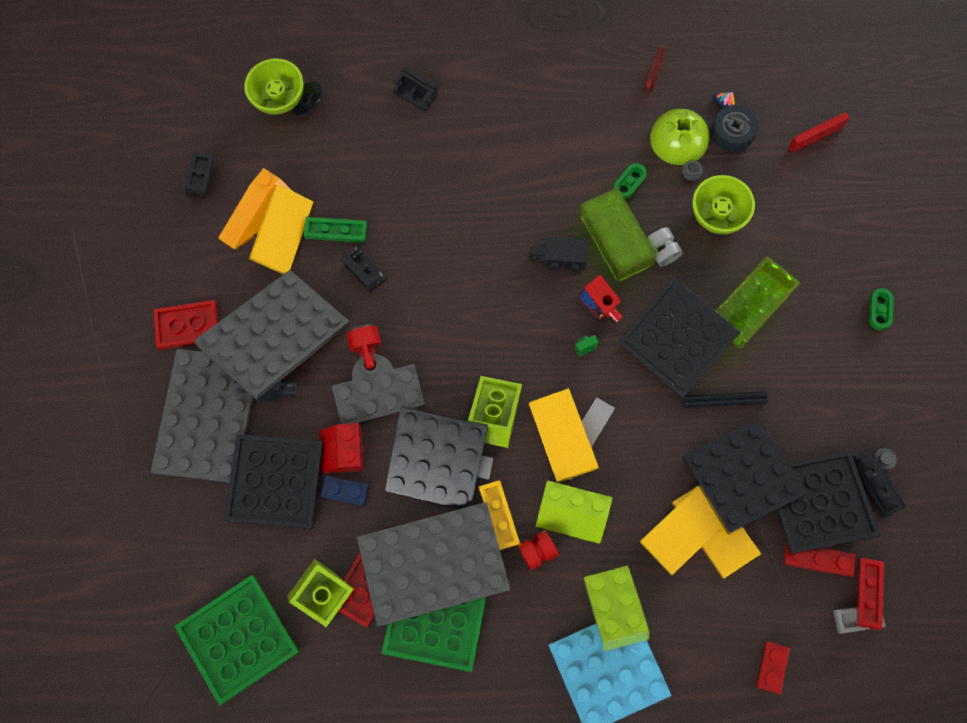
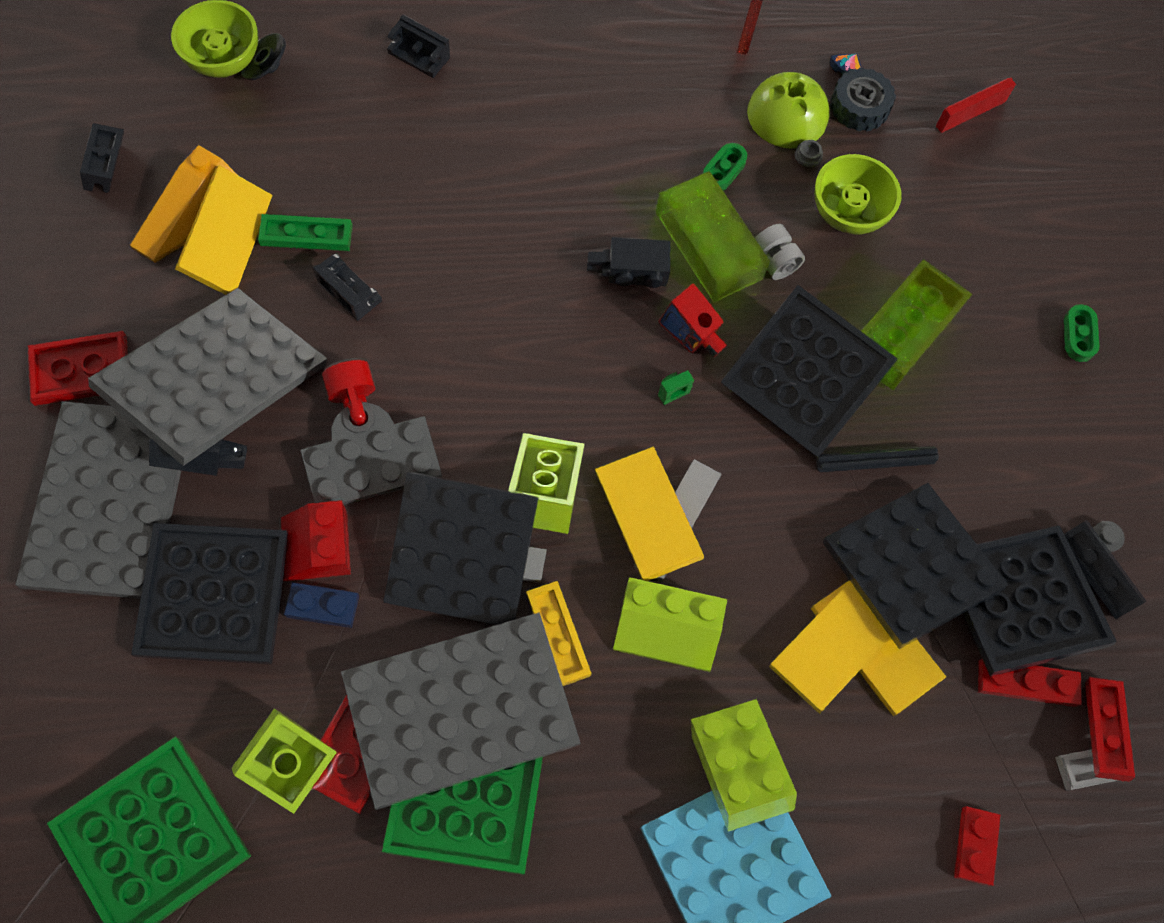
camera: 15 degrees left, 5 degrees down
(538, 550) = (619, 682): red wheel -> none

